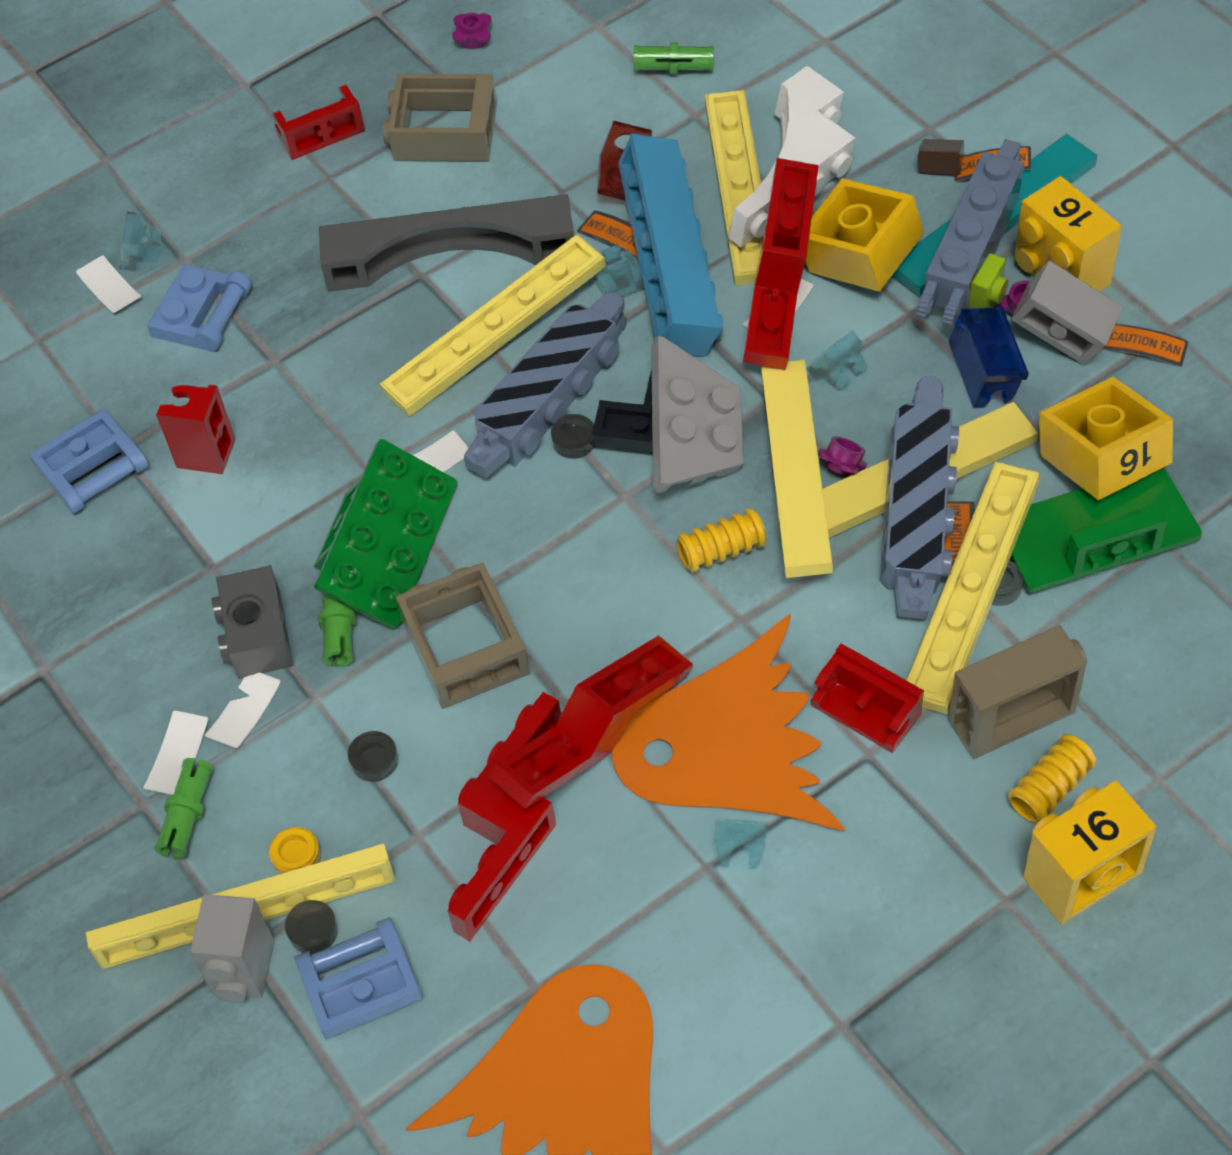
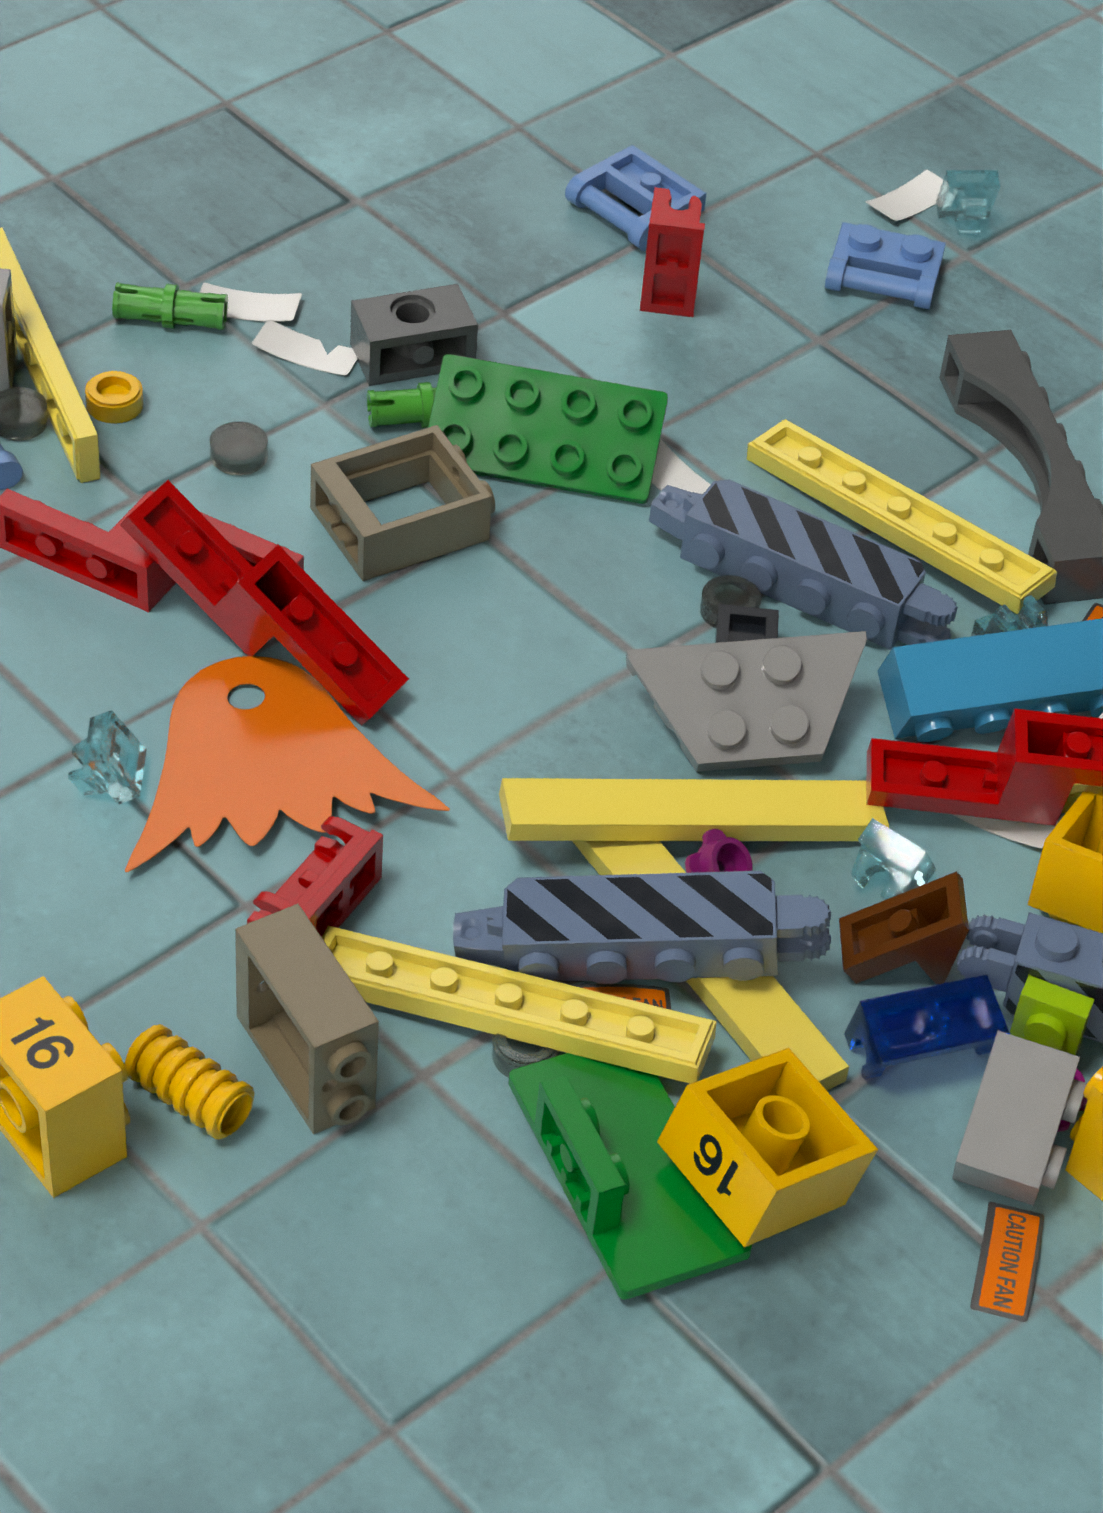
camera: 75 degrees right, 10 degrees down
(721, 540) = (563, 734): yellow piece -> none
(909, 349) = (912, 926): none -> reddish brown slope

